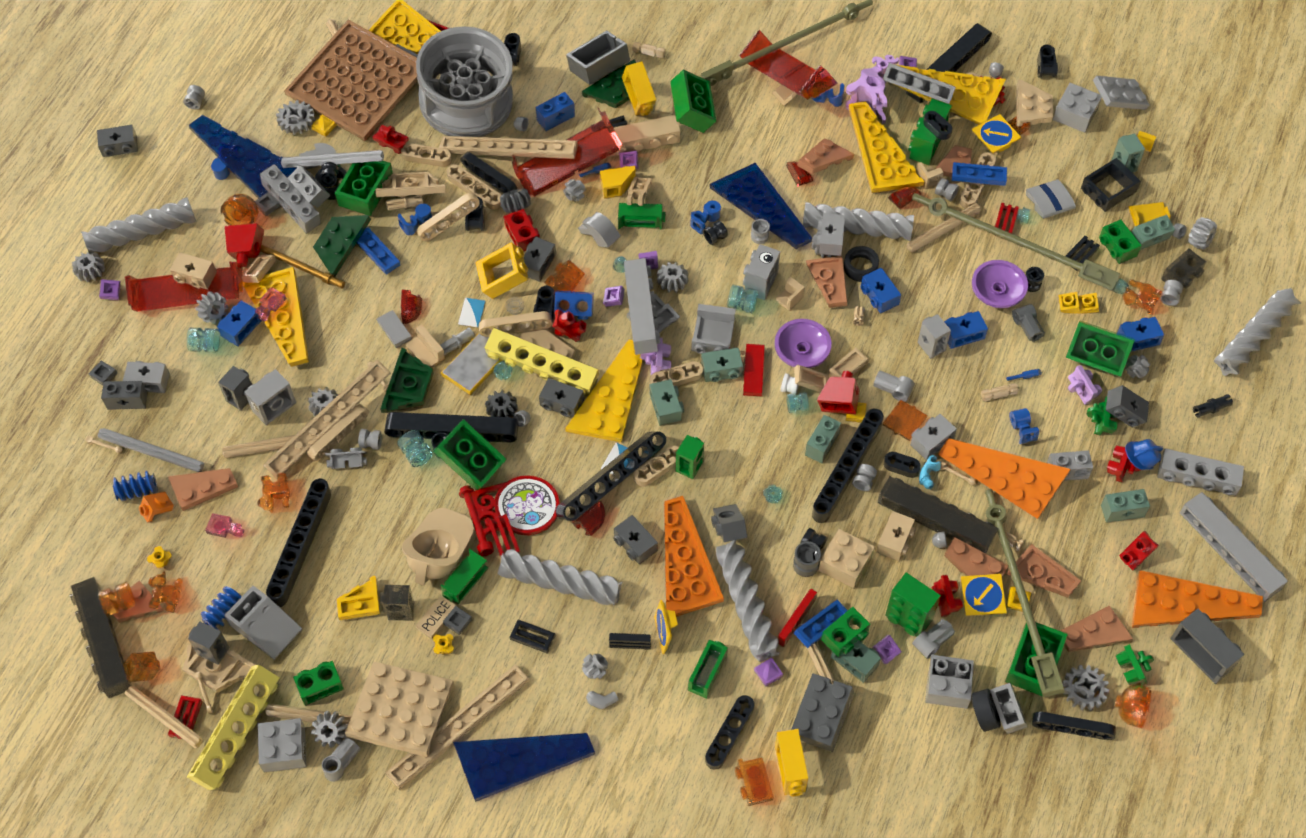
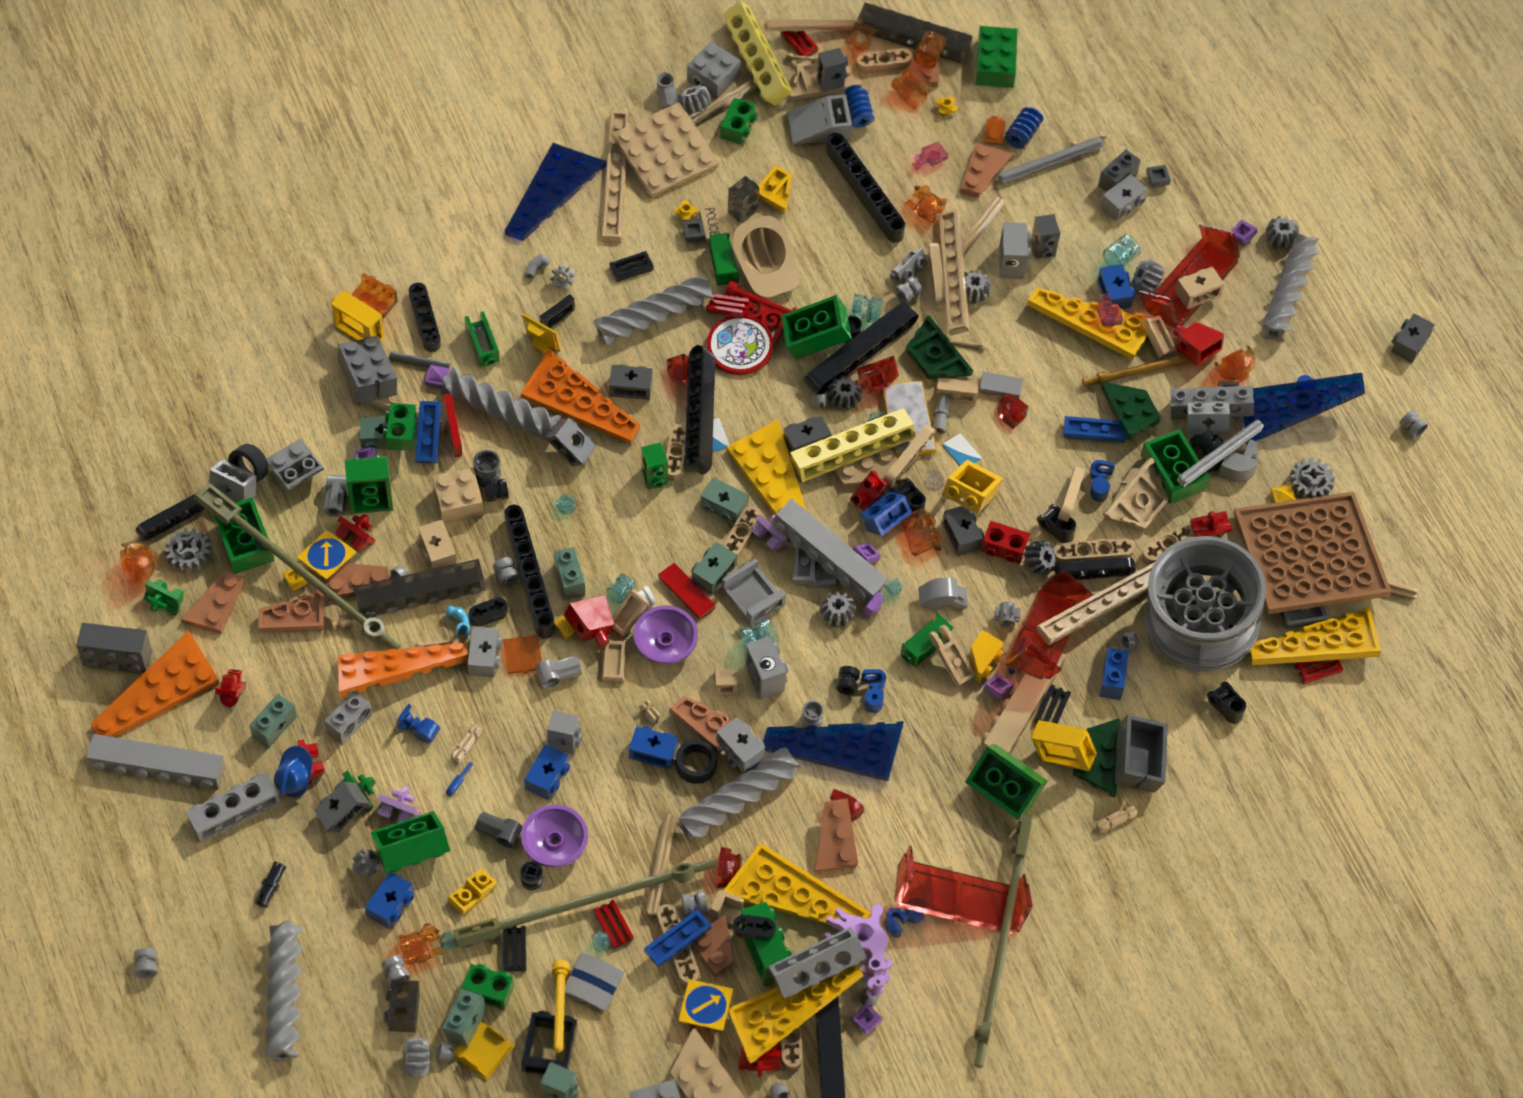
camera: 130 degrees right, 0 degrees up
(75, 558) = (996, 56): none -> green brick
(153, 646) = (879, 66): none -> tan beam
(468, 395) = (878, 374): none -> clear red slope
(768, 698) = (417, 360): none -> dark grey bar
(1065, 216) = (560, 971): none -> yellow piece

